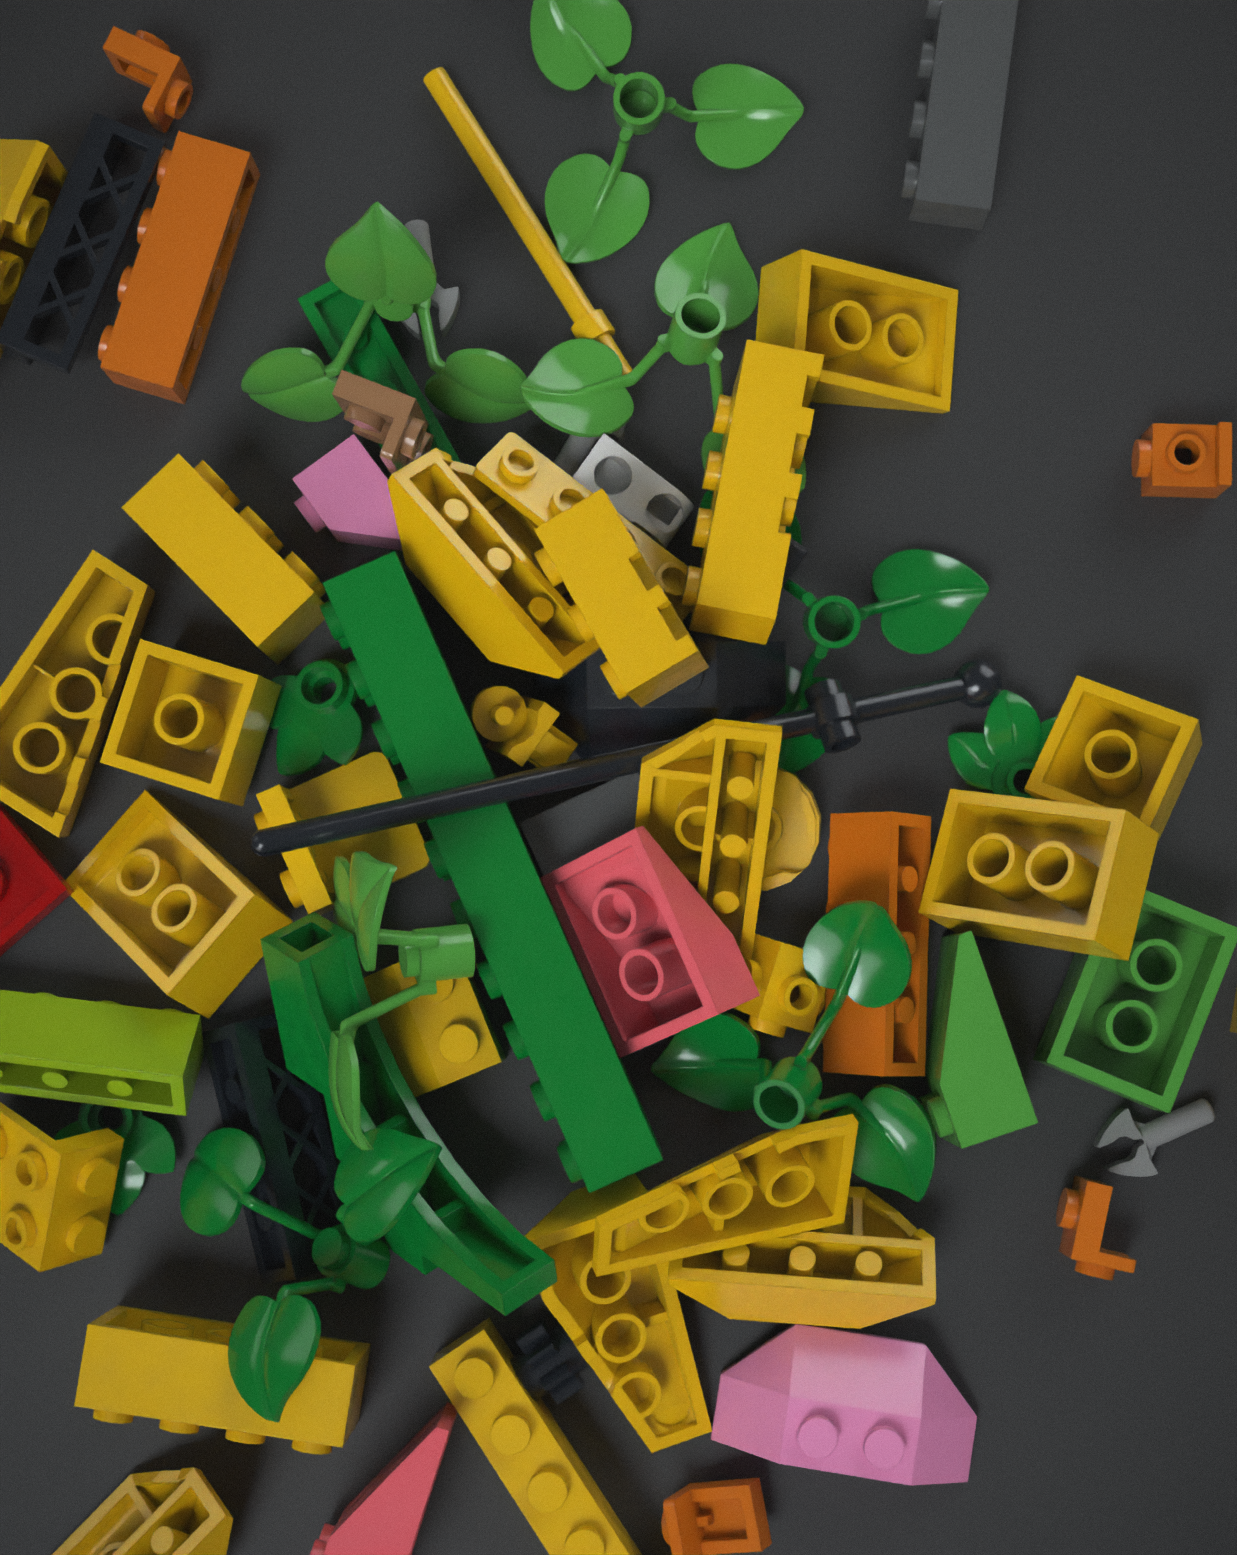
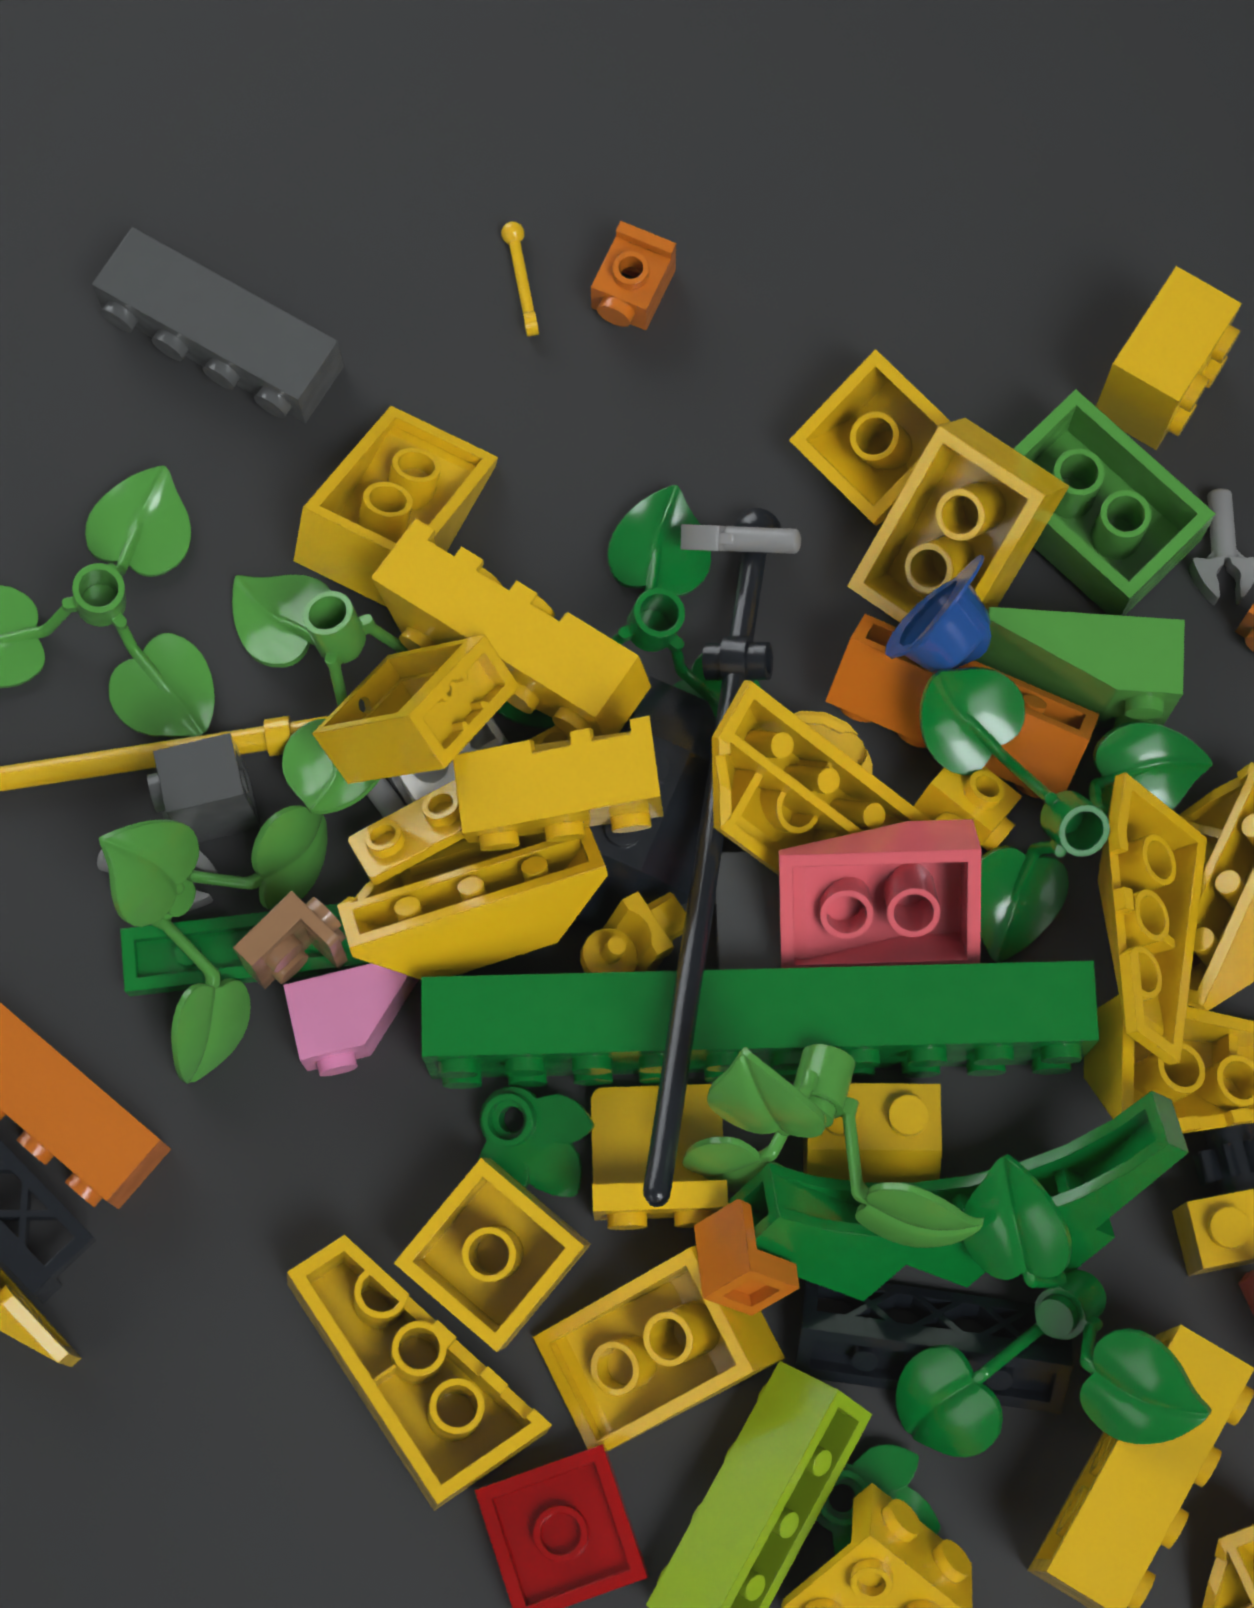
camera: 70 degrees left, 10 degrees down
(230, 555) = (349, 1149): yellow brick -> none
(249, 935) = (733, 1267): none -> orange panel
(503, 283) = (205, 787): none -> dark grey brick
(622, 433) = (417, 710): none -> yellow window
(933, 894) = (945, 626): none -> blue piece
(952, 649) = (740, 539): none -> light grey bar
(1007, 746) = (827, 531): green plate -> none
(1182, 329) = (513, 234): none -> yellow hinge

